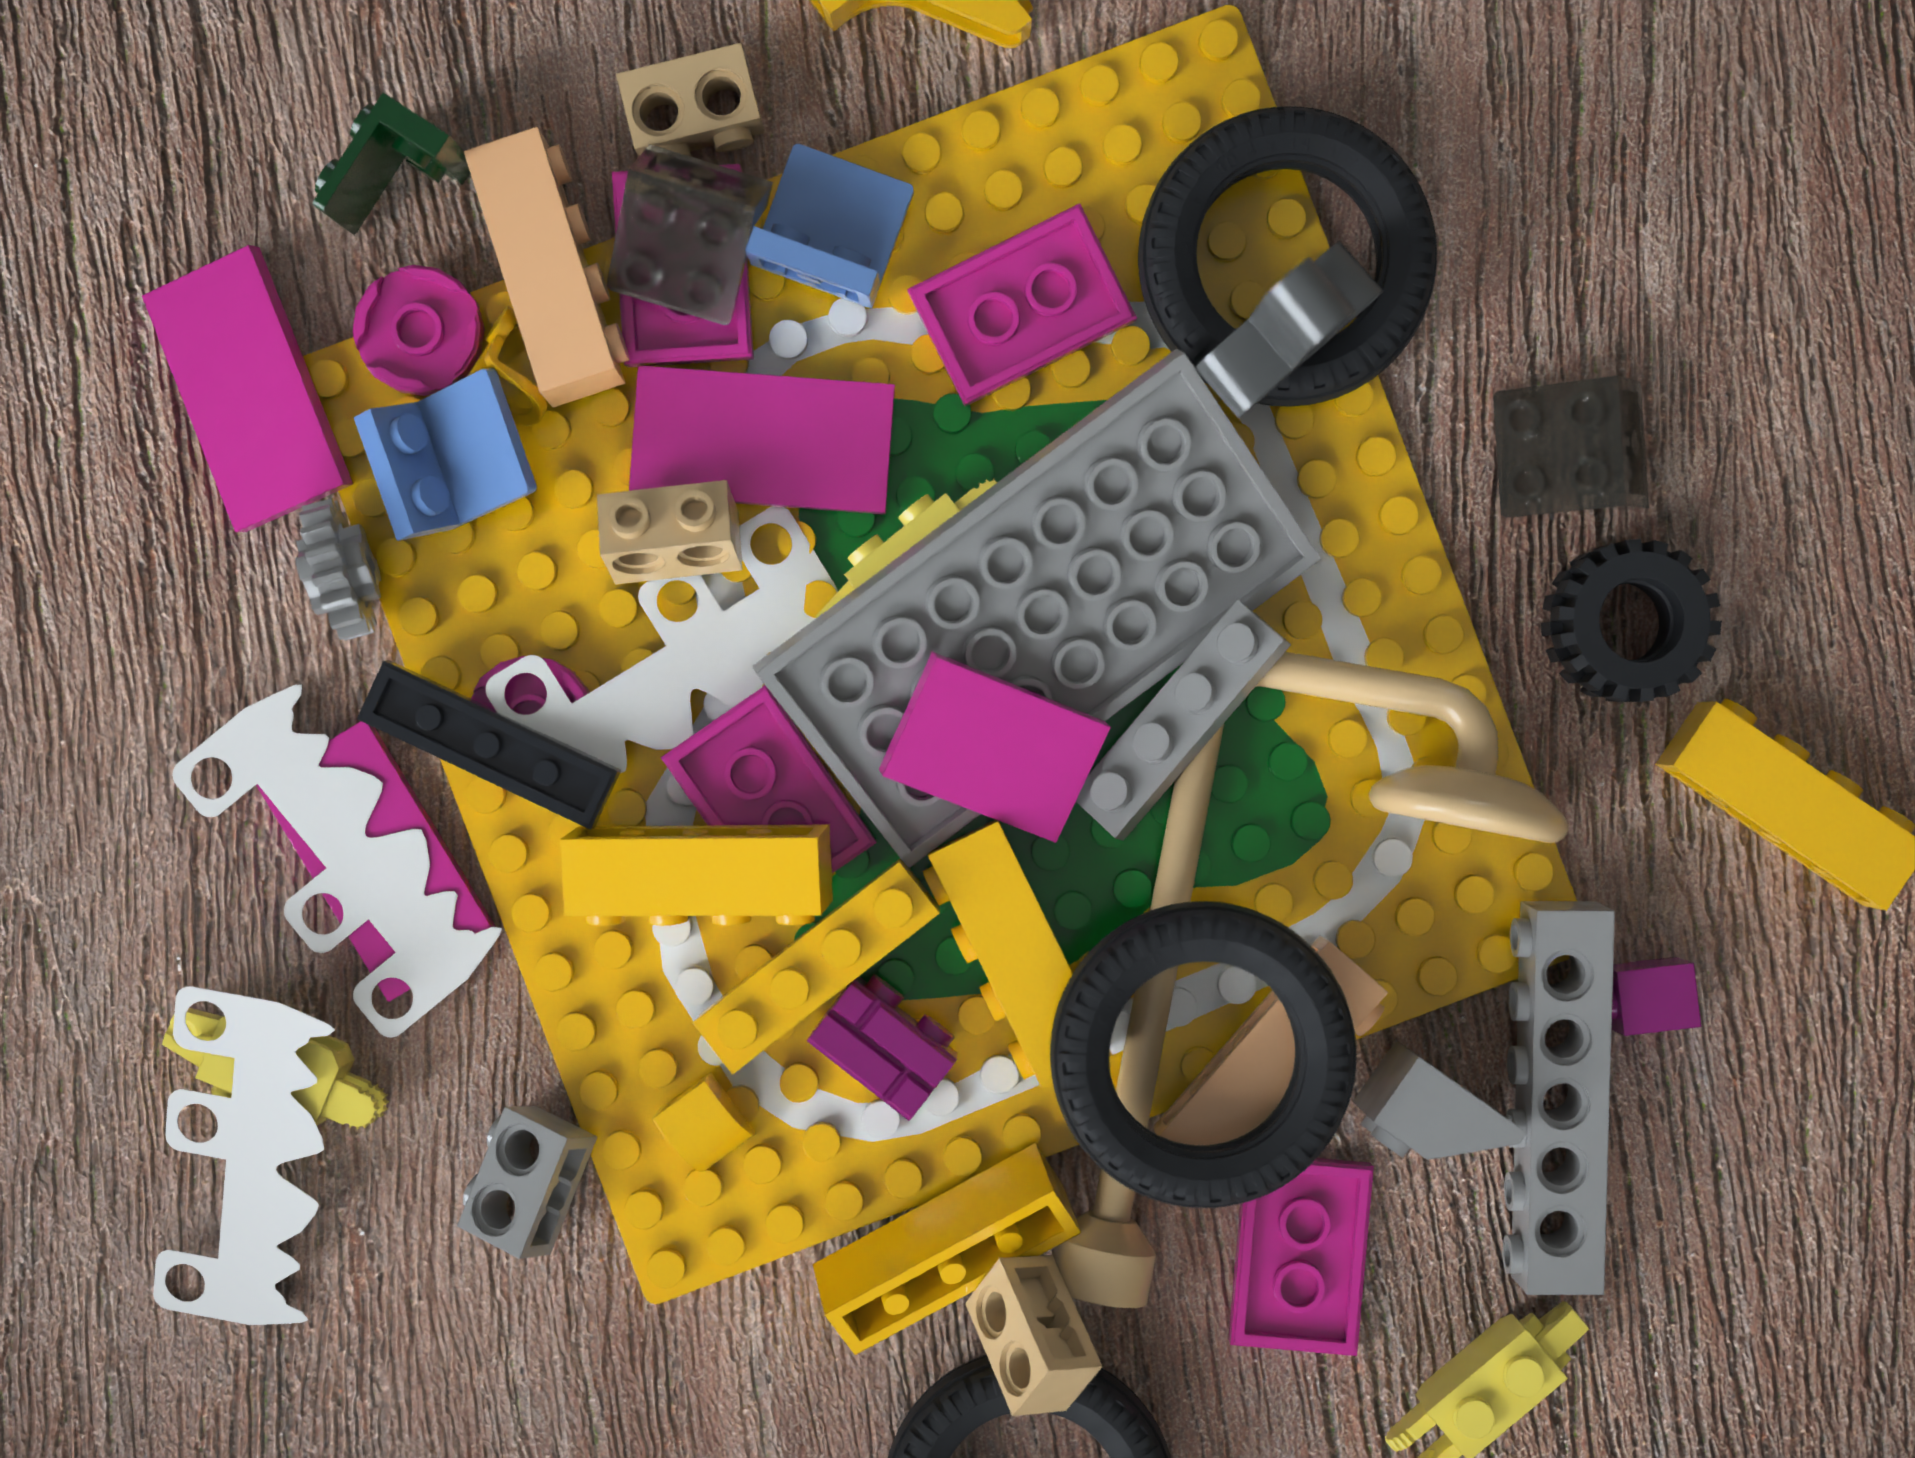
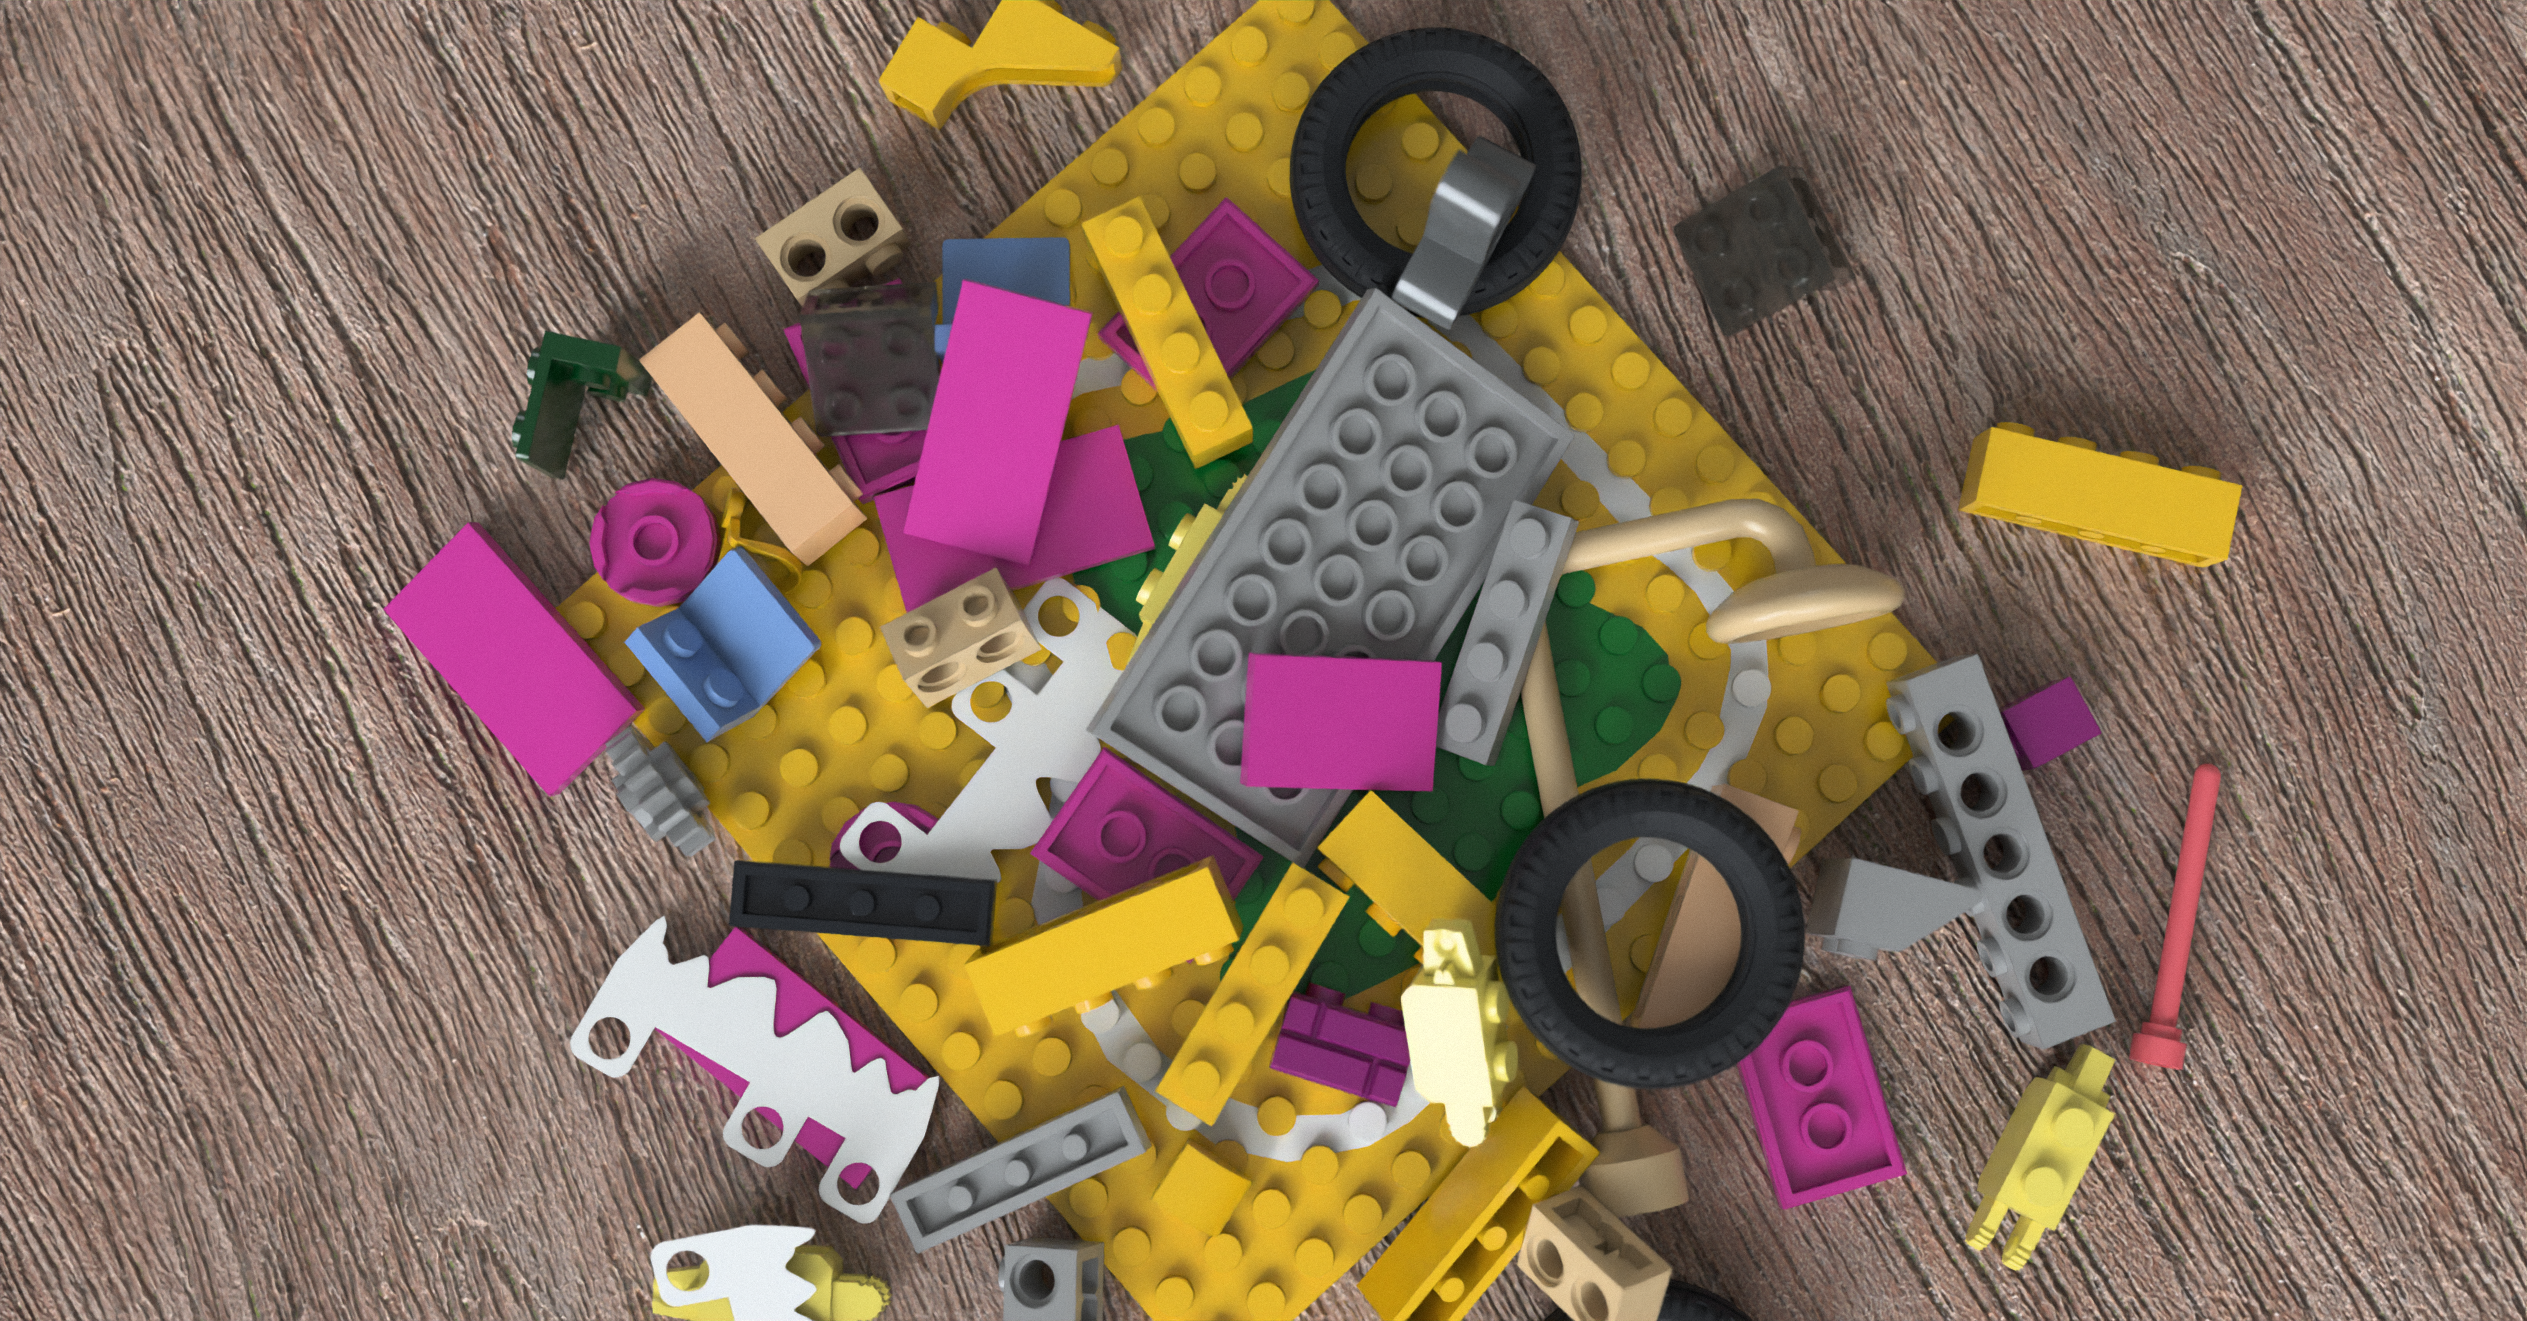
camera: 25 degrees left, 5 degrees down
(545, 1043) = (1020, 1170): none -> light grey plate
(779, 340) = (997, 421): none -> dark pink tile
(972, 315) = (1167, 332): none -> yellow brick
(993, 1074) = (1459, 1030): none -> hinge
(1639, 1323) = (2159, 1038): none -> coral piece
(1681, 612) = (1922, 355): black tyre -> none

